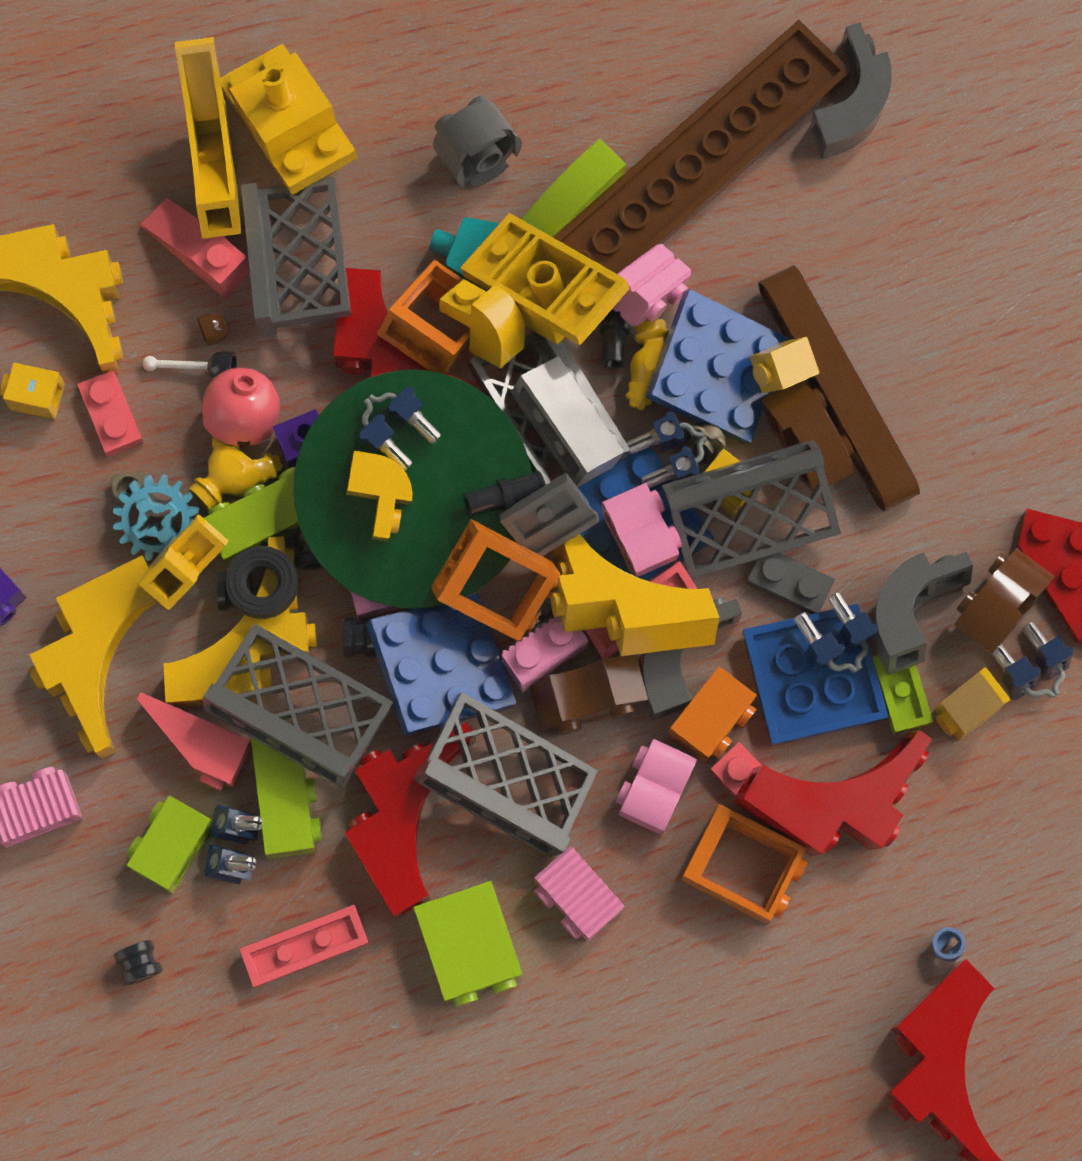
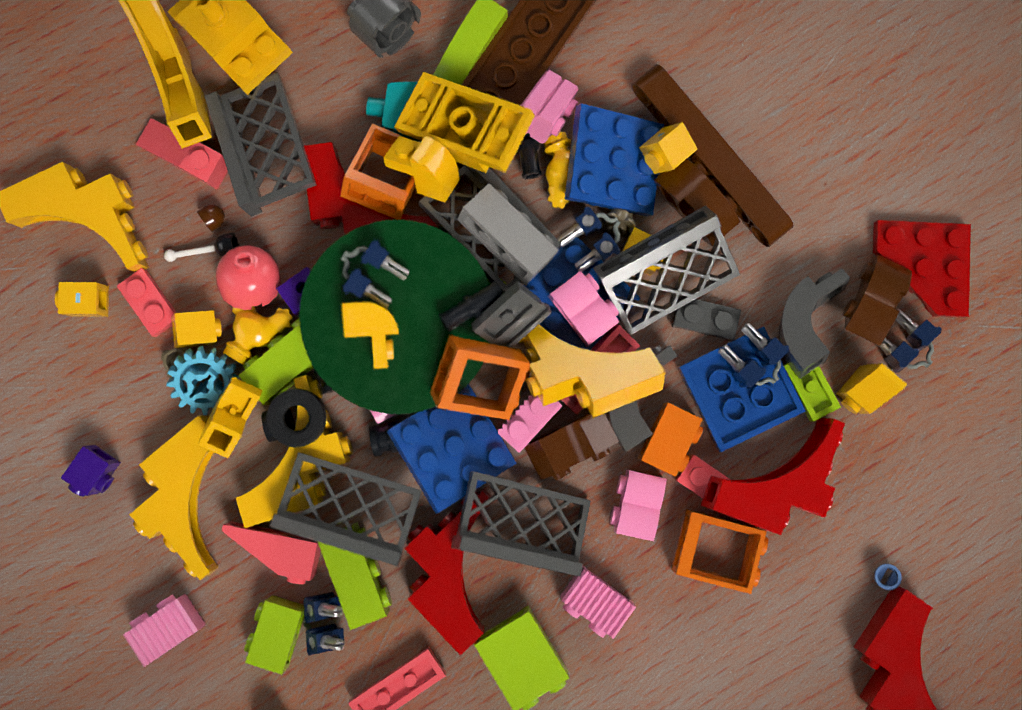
camera: 10 degrees left, 10 degrees up
(161, 454) = (195, 329): none -> yellow brick

